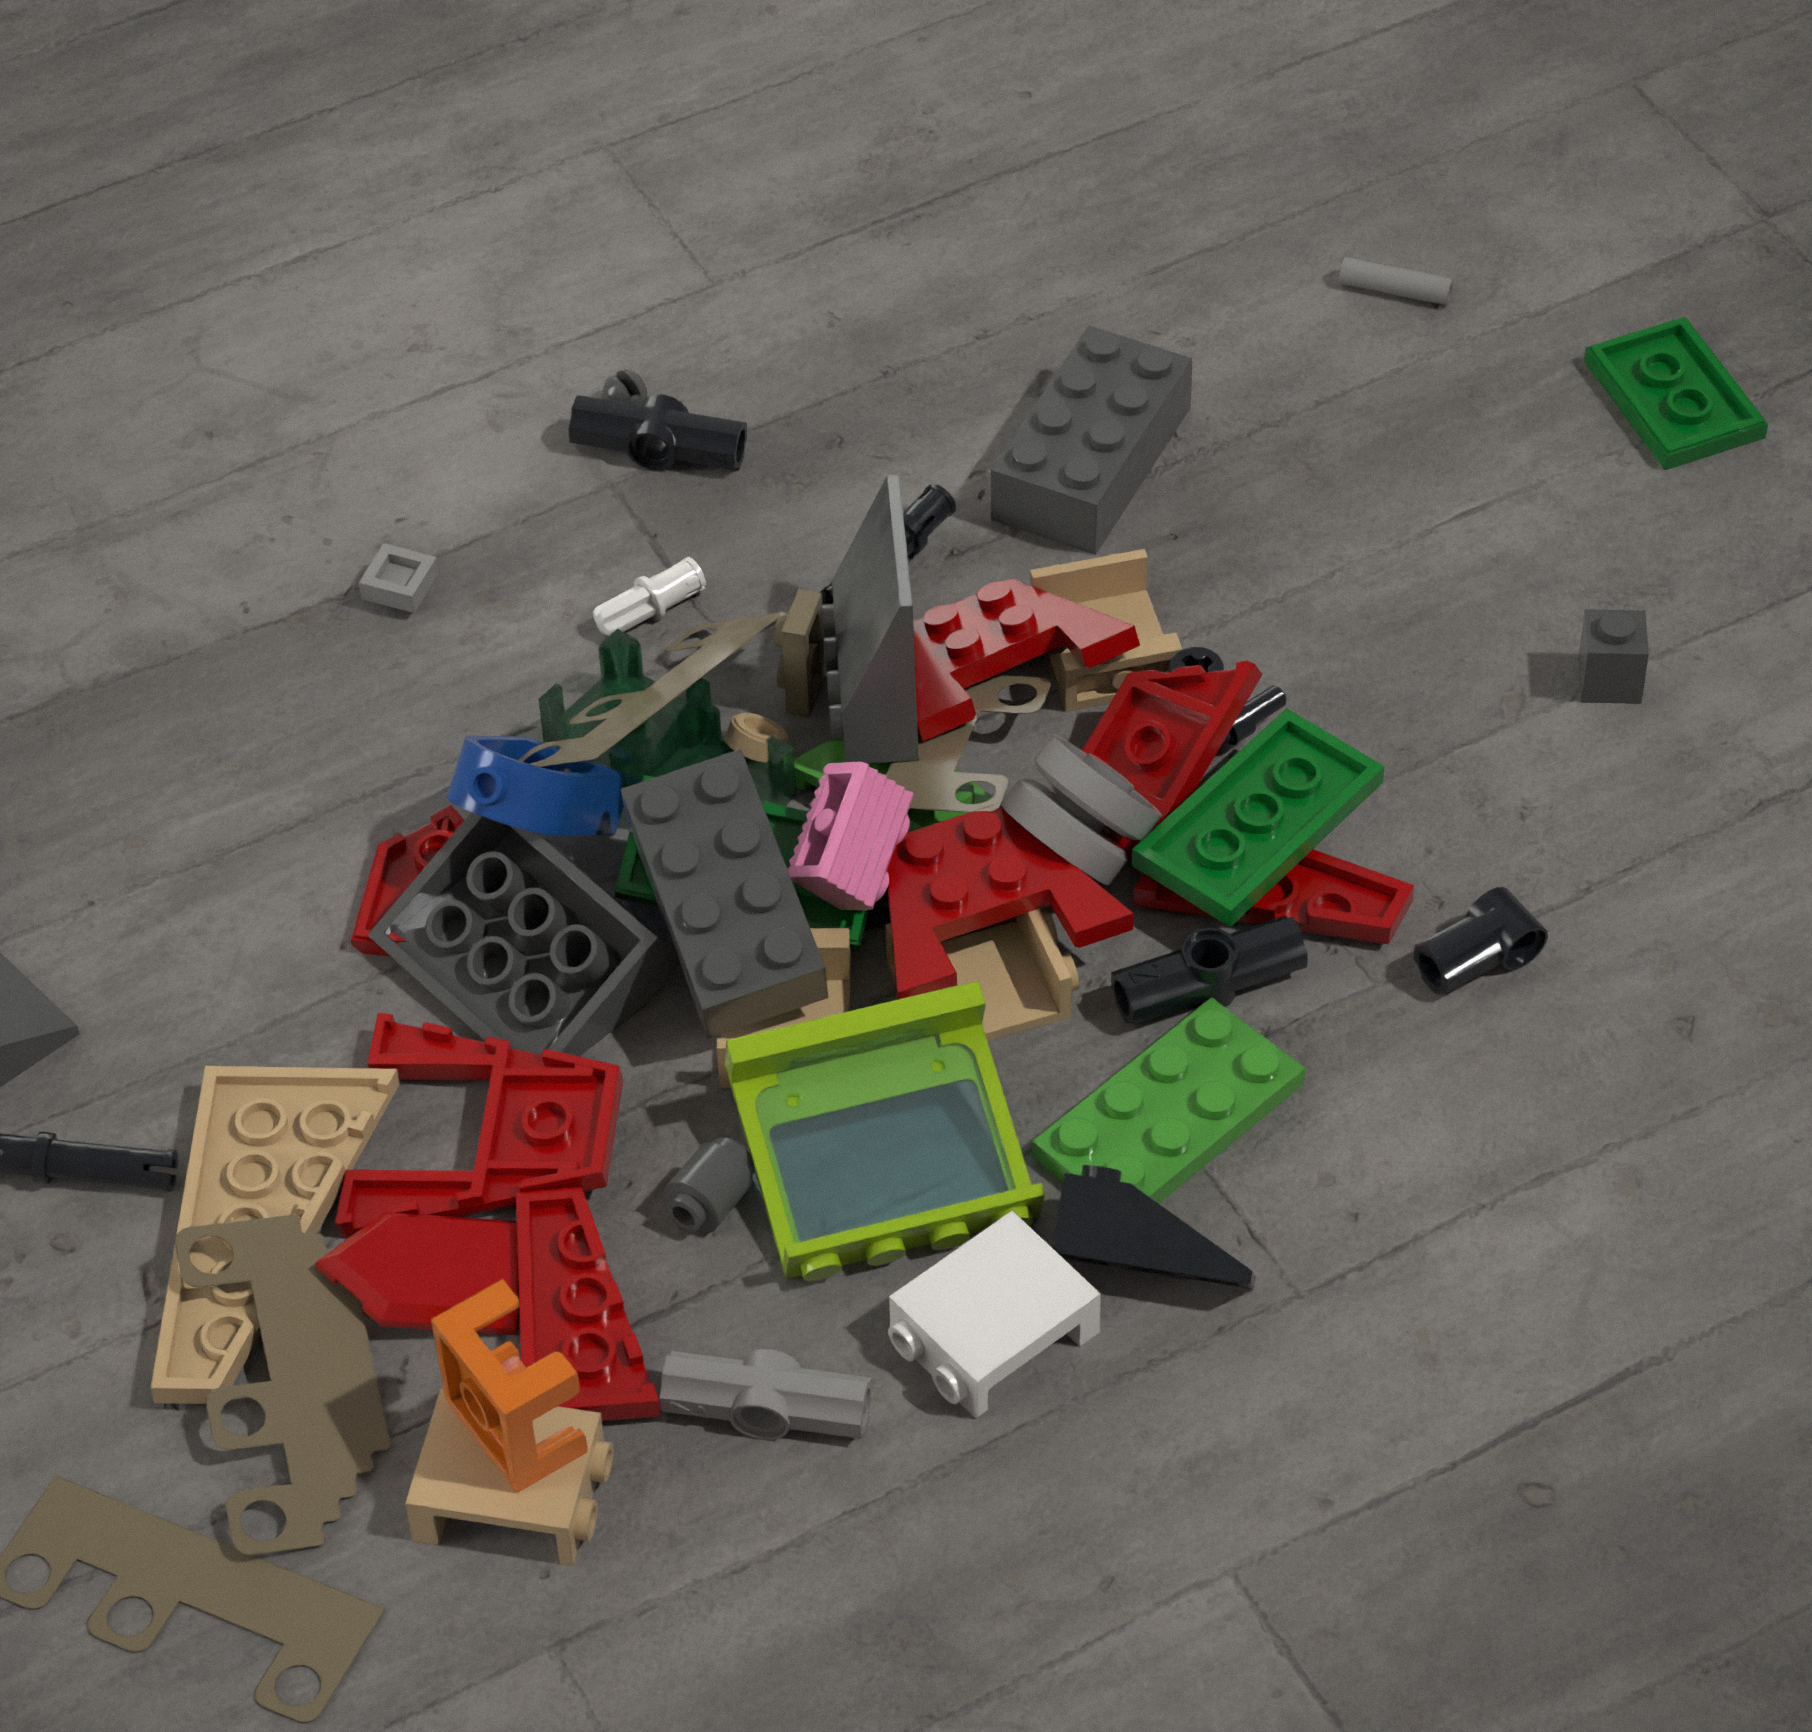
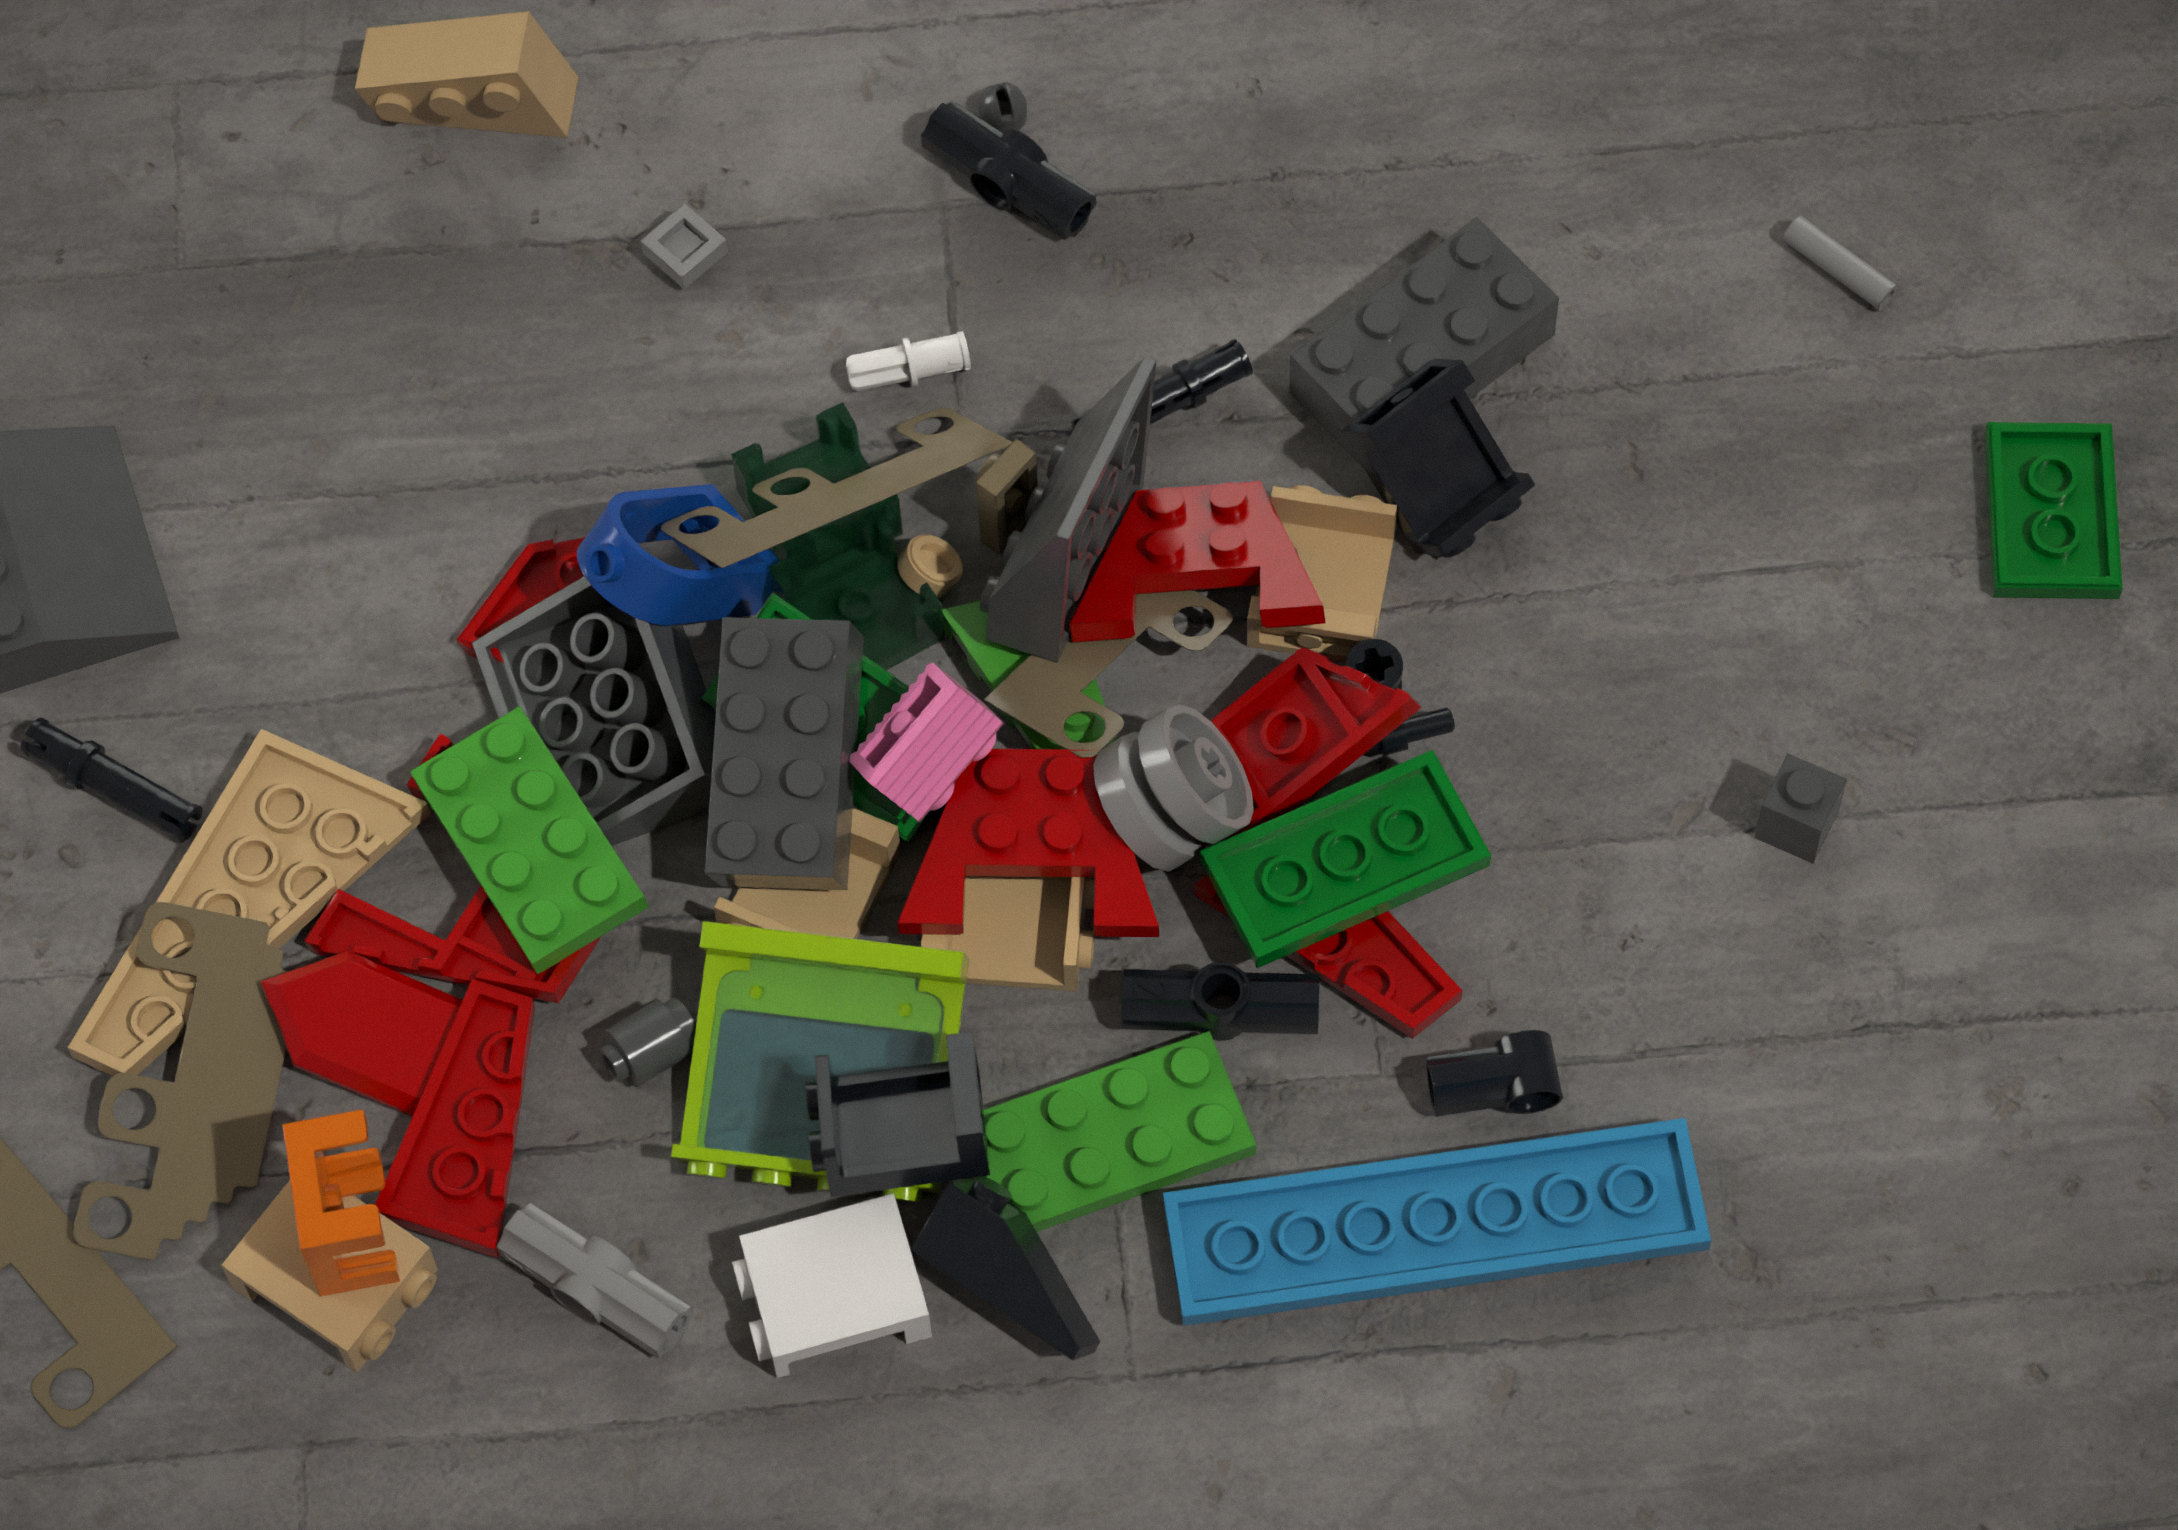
camera: 25 degrees right, 15 degrees up
(132, 510) = (469, 75): none -> tan wedge
(513, 1058) = (529, 840): none -> bright green plate
(995, 1145) = (899, 1123): none -> black panel
(1155, 505) = (1436, 460): none -> black panel
(1492, 1071) = (1435, 1221): none -> dark azure plate

